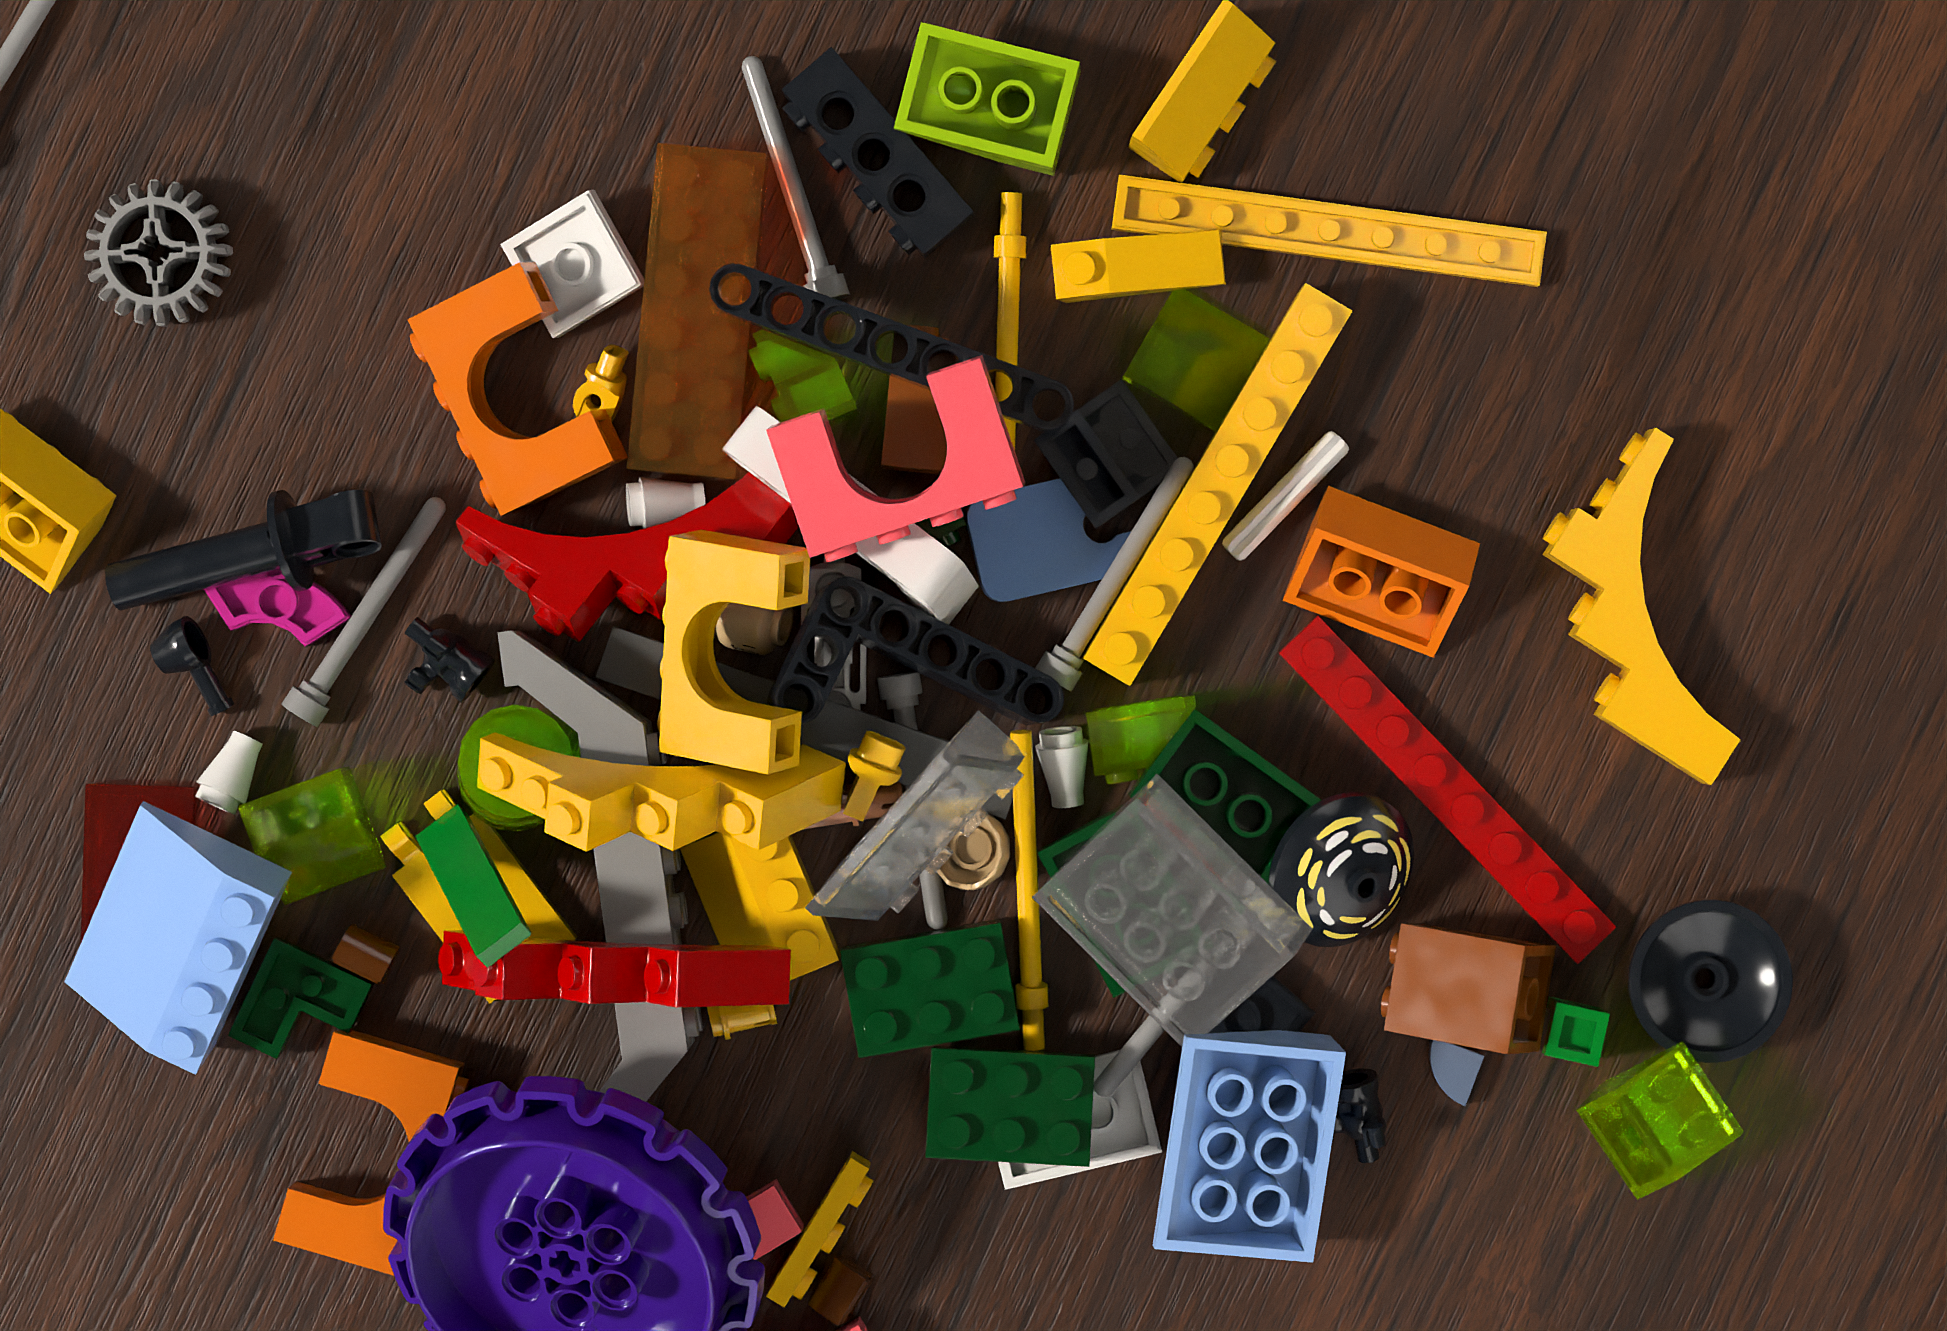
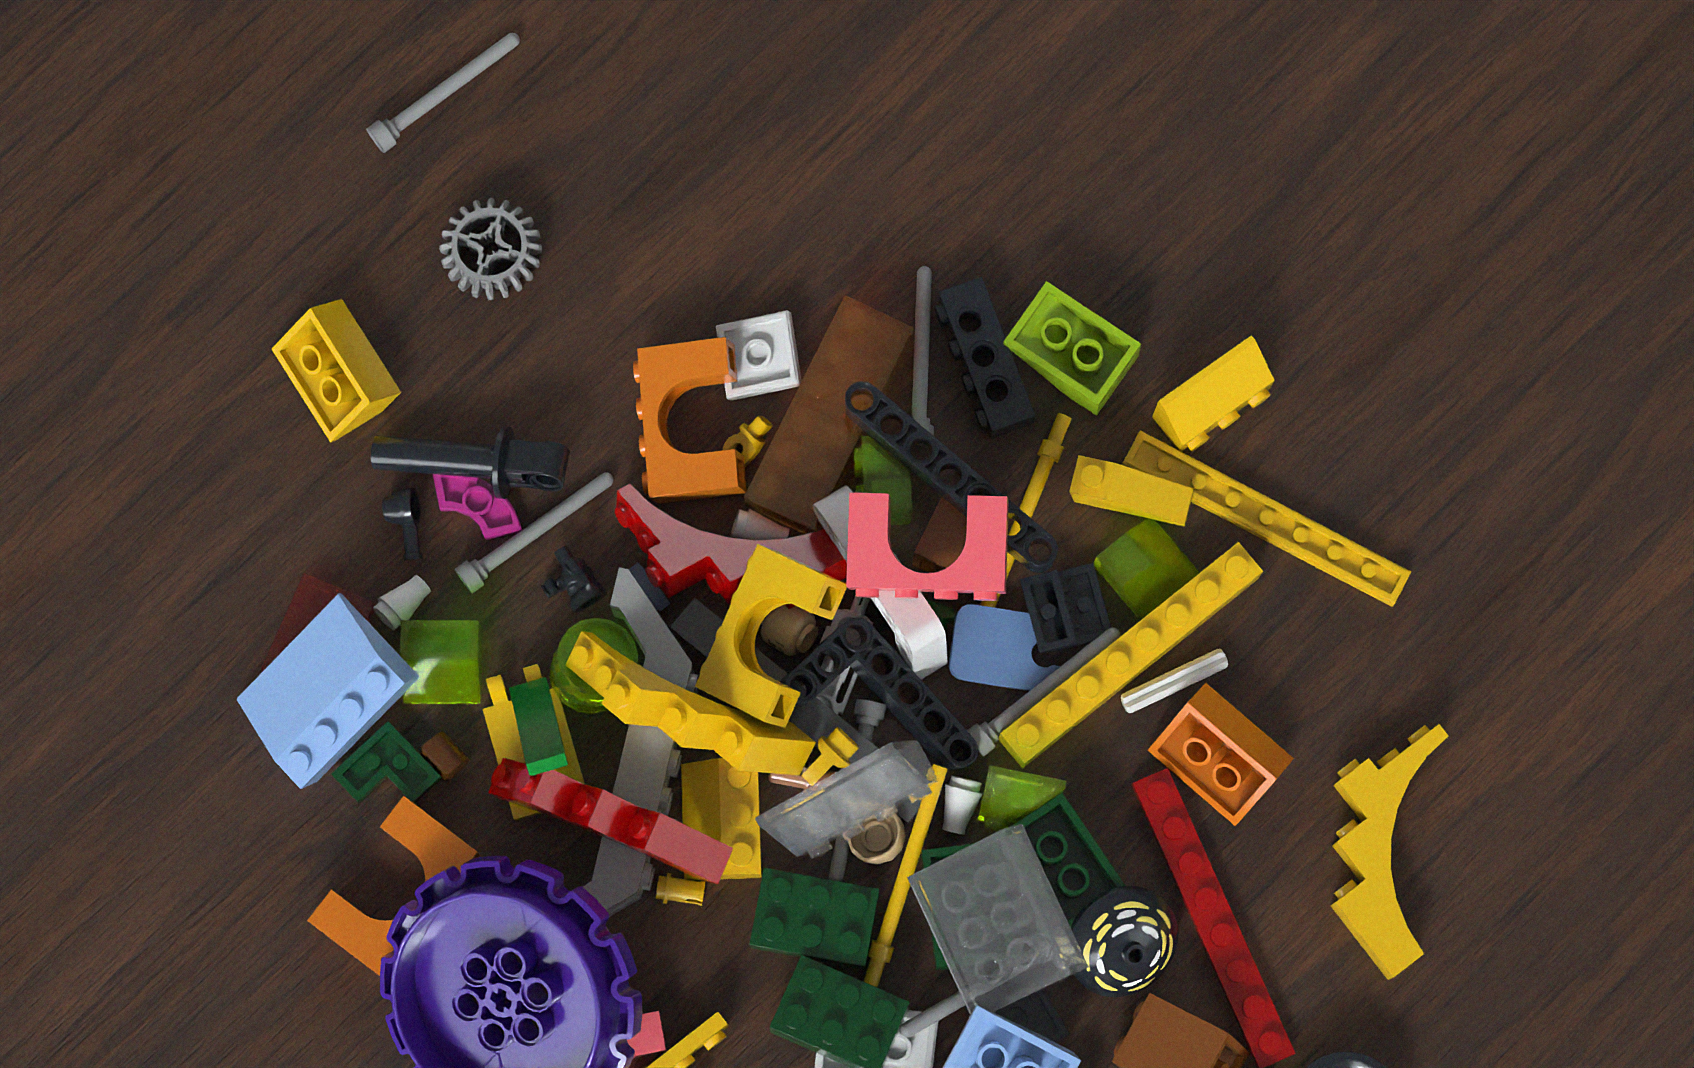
camera: 20 degrees right, 10 degrees down
(562, 644) = (654, 594): none -> sand blue tile

